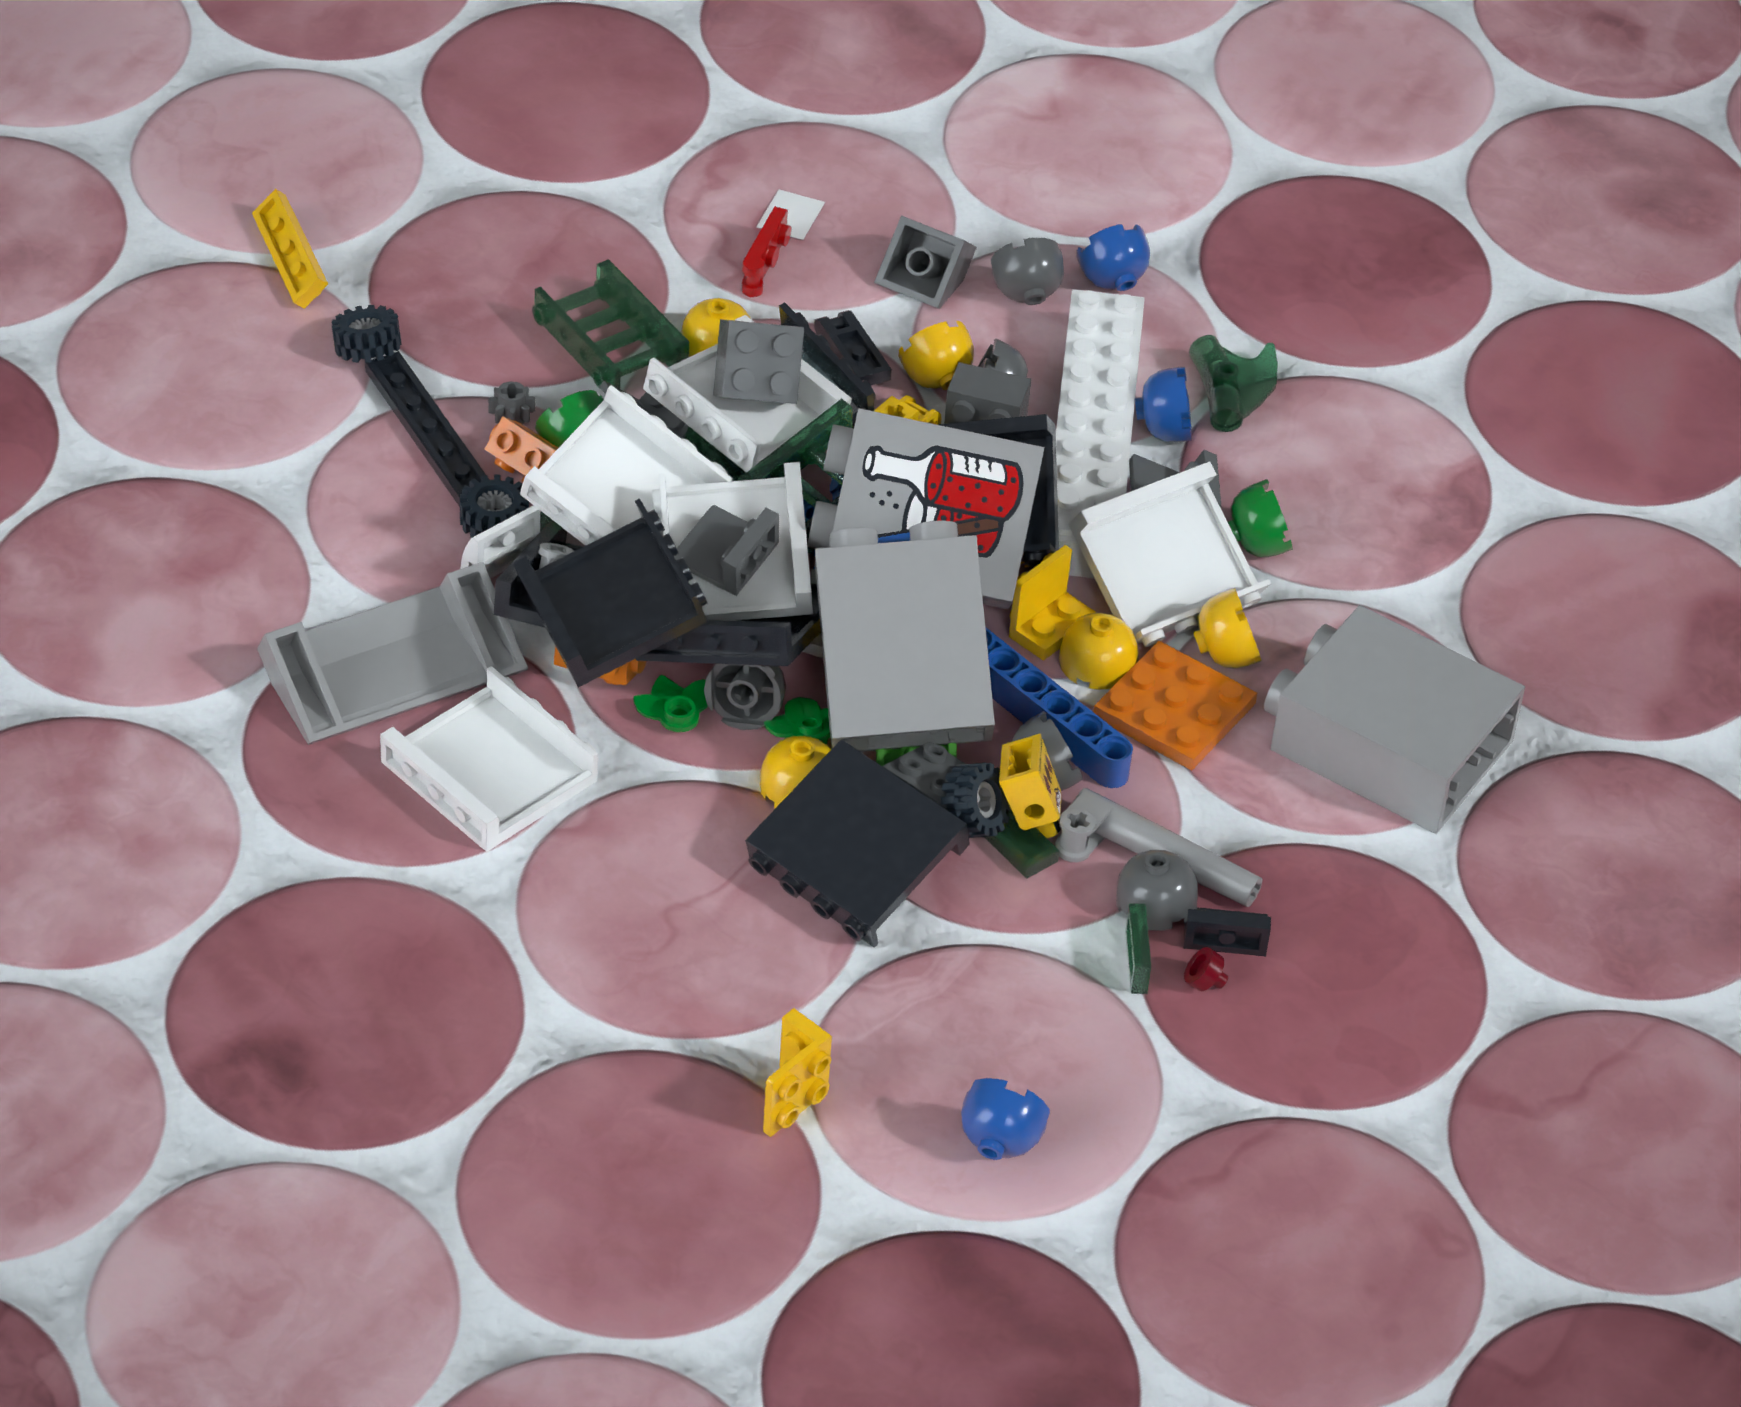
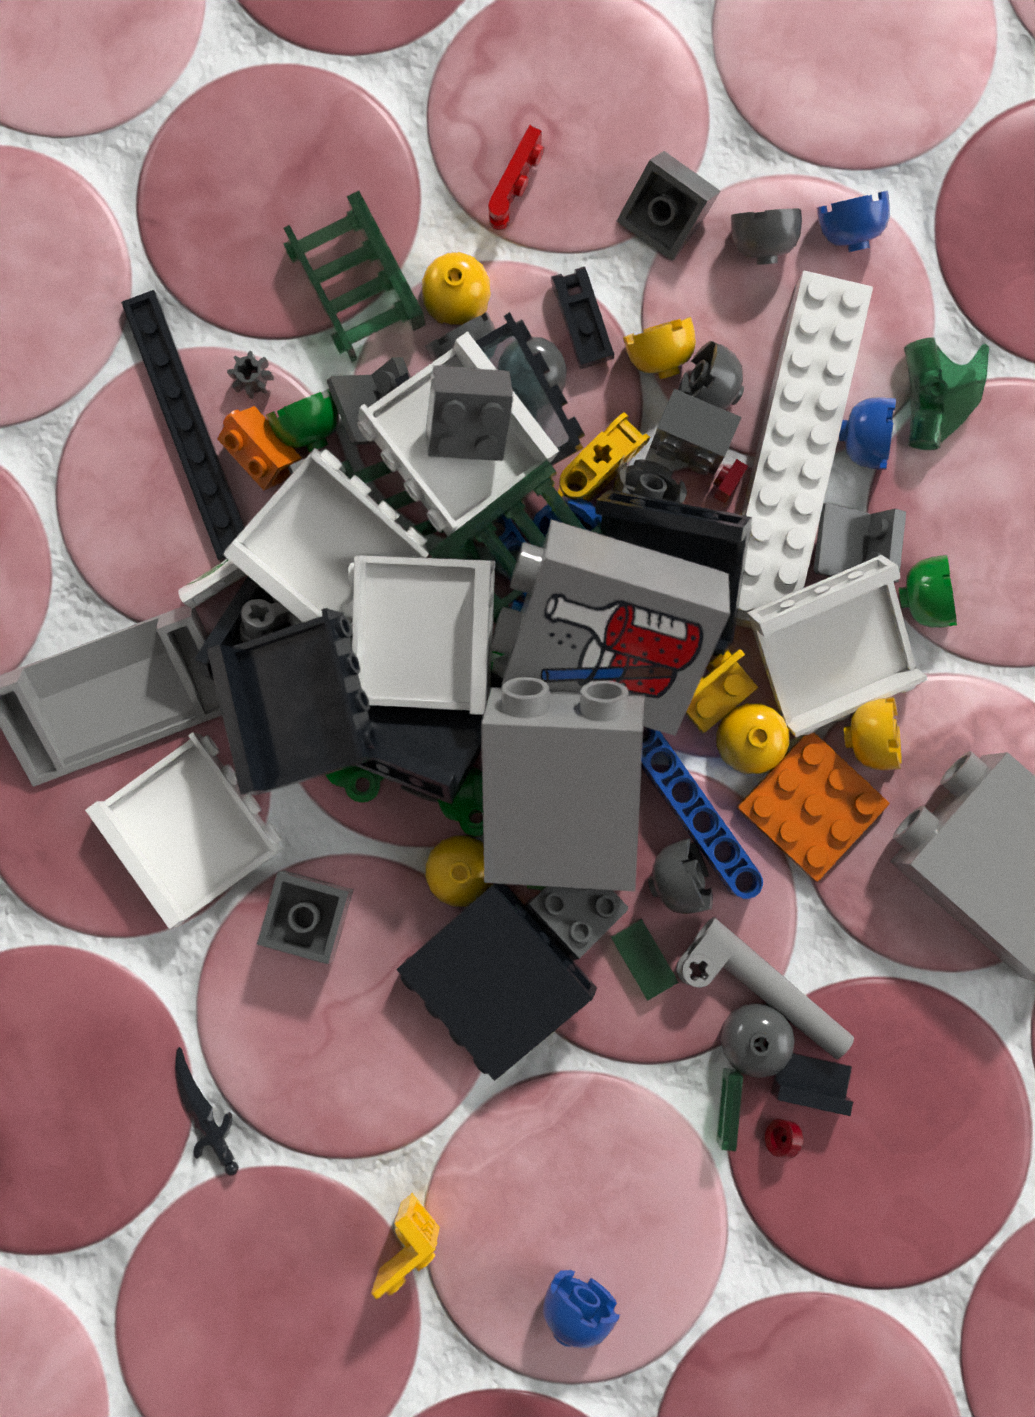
camera: 10 degrees right, 40 degrees up
(290, 249) = (61, 141): yellow plate -> none
(366, 333) = (120, 254): black bush -> none
(481, 499) = (213, 505): black bush -> none
(540, 1008) = (203, 1117): none -> black piece
(636, 810) = (305, 917): none -> dark grey brick
(729, 548) = (410, 645): dark grey bracket -> none
(801, 212) = (552, 112): white sticker -> none
(977, 798) = (608, 950): black bush -> none
(1031, 785) = (657, 938): yellow torso -> none

